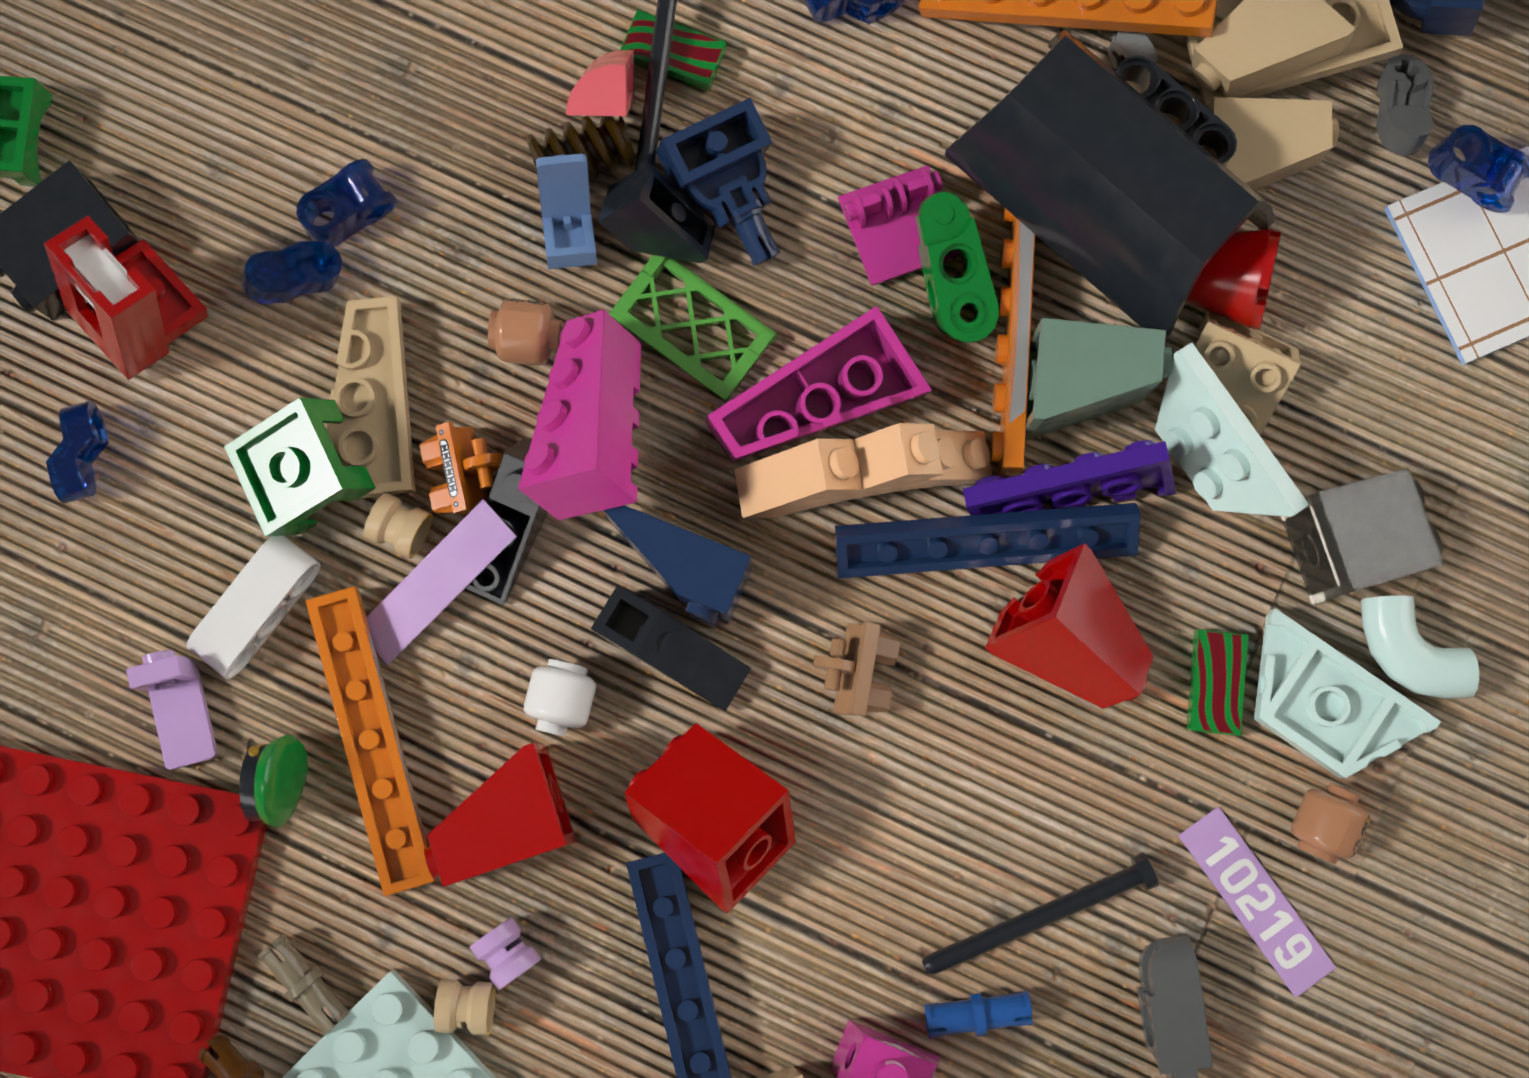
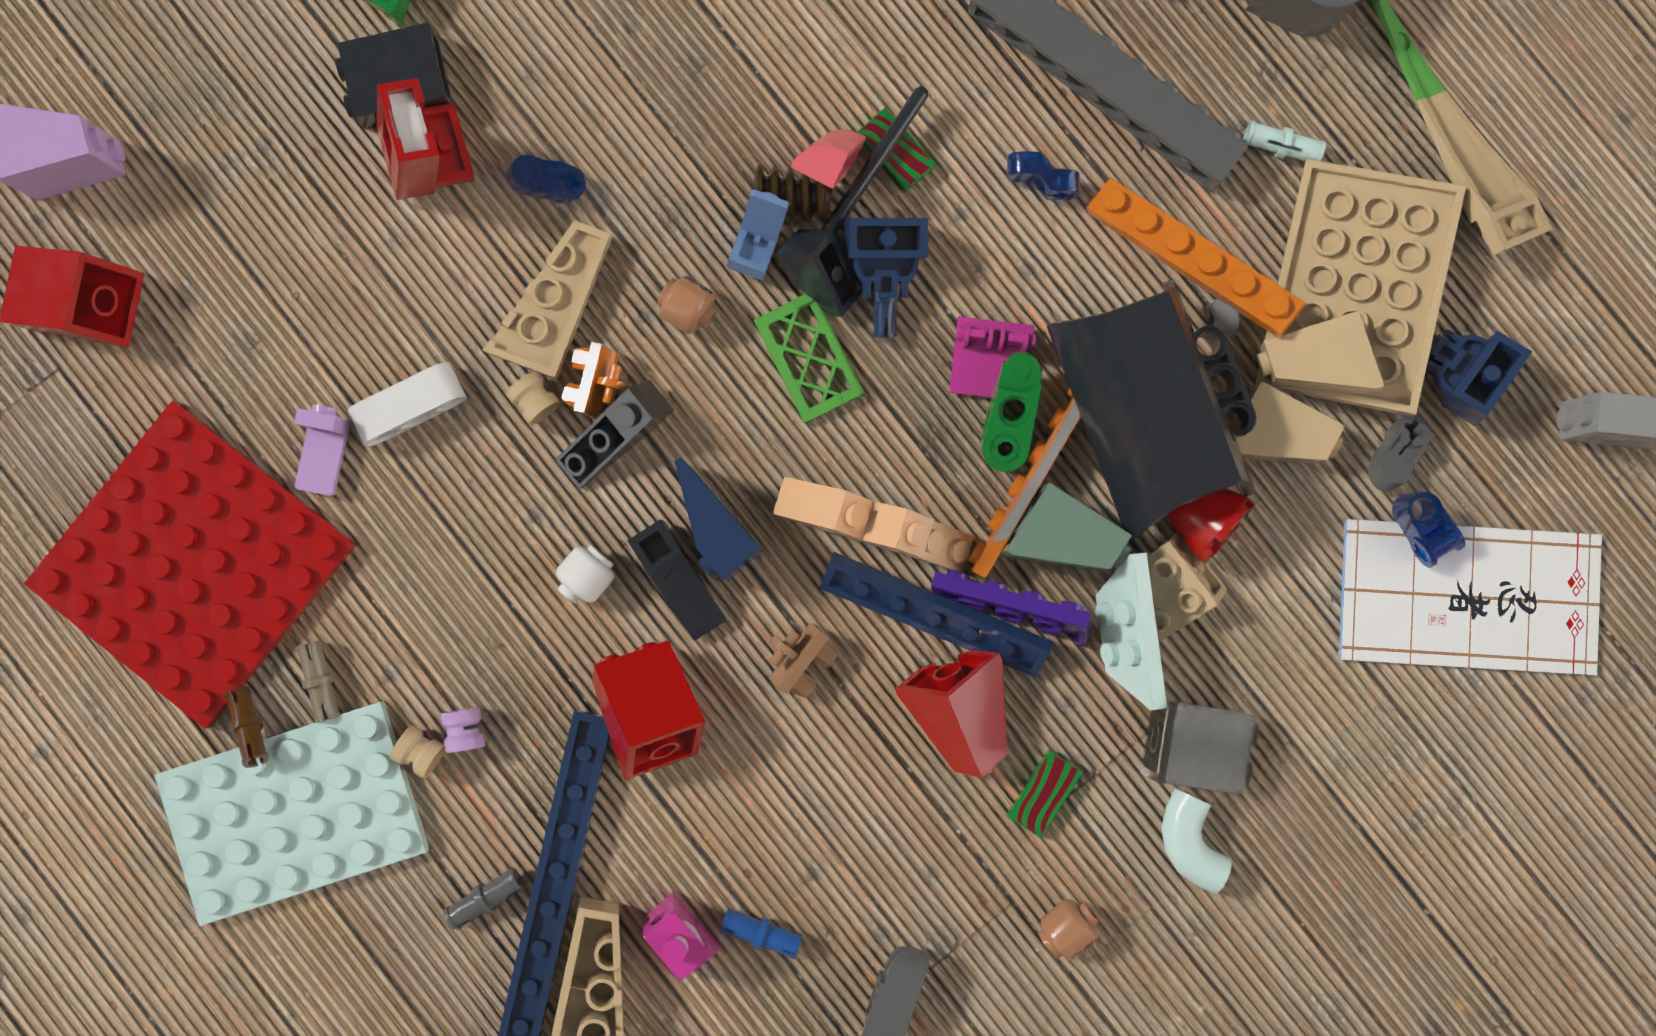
camera: 25 degrees right, 5 degrees up
(72, 460) = (345, 227): clear blue piece -> none
(272, 780) = (361, 533): green piece -> none
(293, 467) = (478, 323): panel -> none
(347, 201) = (610, 148): clear blue piece -> none
(370, 739) = (442, 538): orange plate -> none
(438, 580) = (539, 451): lavender sticker -> none
(503, 821) = (504, 644): red slope -> none
(586, 422) = (695, 394): dark pink wedge -> none
(830, 385) = (877, 451): dark pink wedge -> none
(1138, 874) = (840, 890): black bar -> none
(1257, 902) = (992, 955): lavender sticker -> none
(1329, 702) = (1114, 846): light aqua wing -> none

